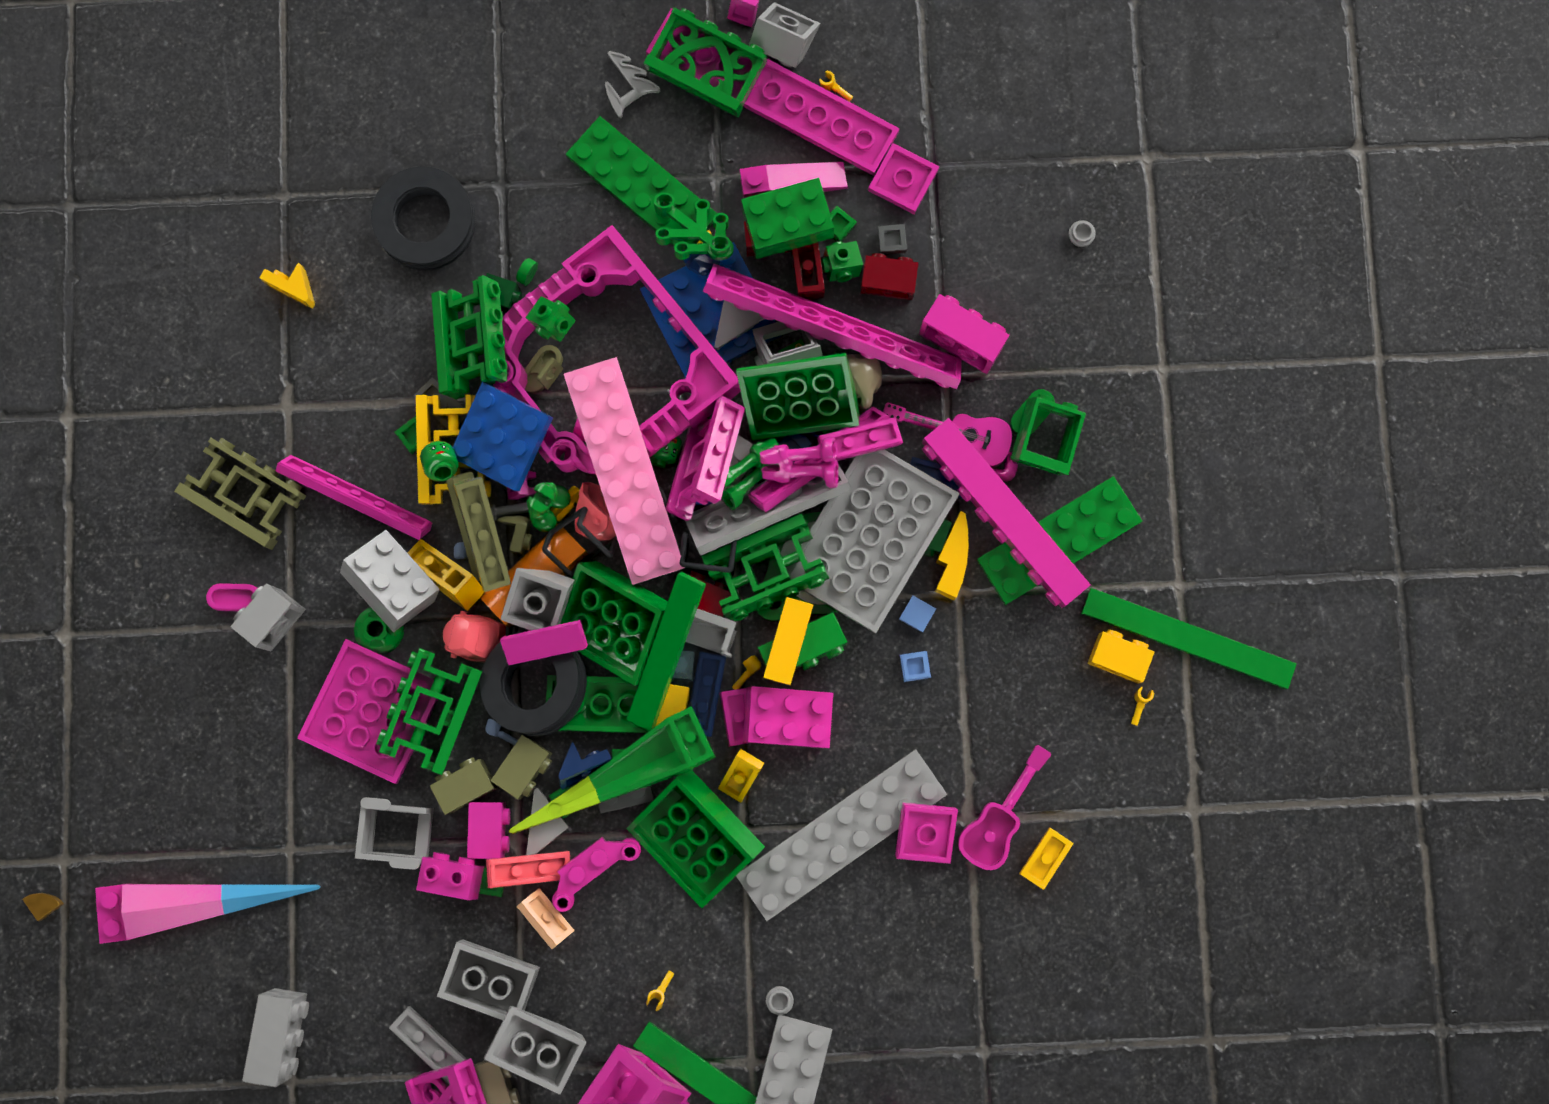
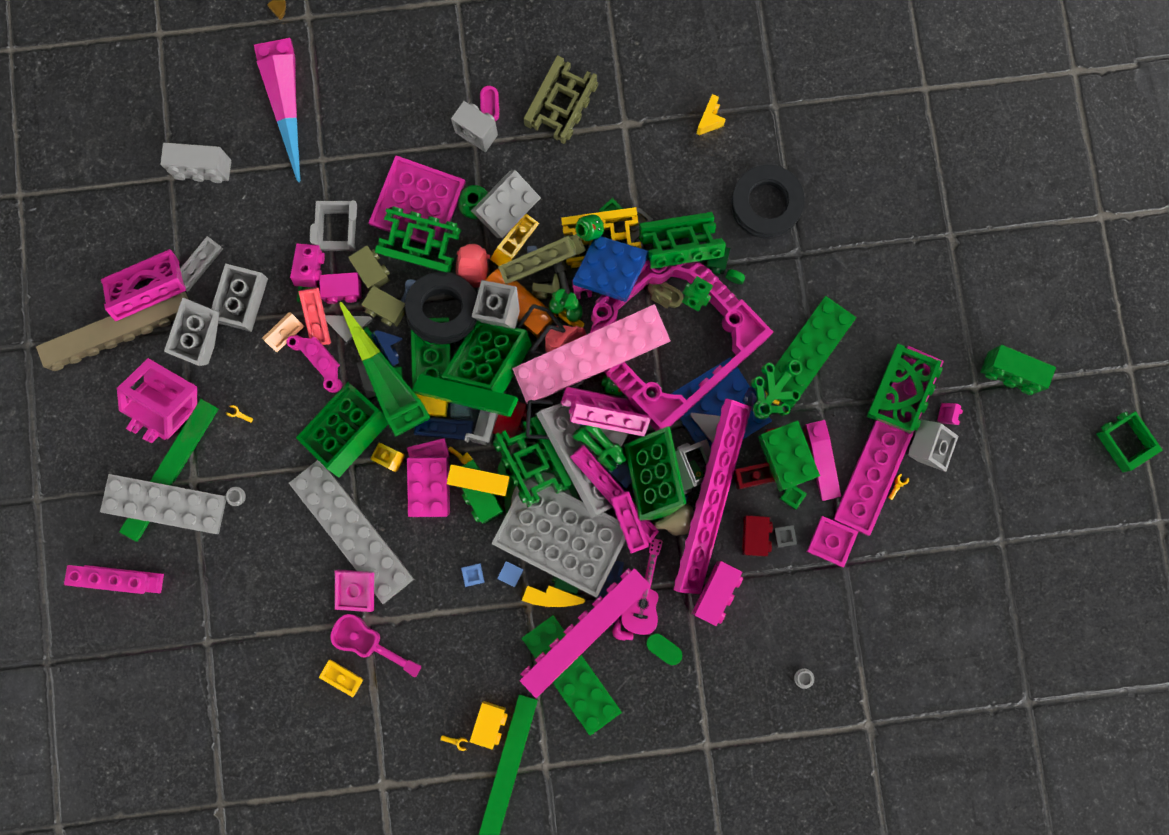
camera: 85 degrees right, 0 degrees up
(354, 497) = (563, 175): dark pink tile -> none
(544, 642) = (467, 311): dark pink tile -> none
(639, 85) = (883, 343): light grey piece -> none
(786, 469) = (605, 465): dark pink piece -> none
(842, 261) = (763, 500): green brick -> none
(1069, 442) = (643, 677): green window -> none

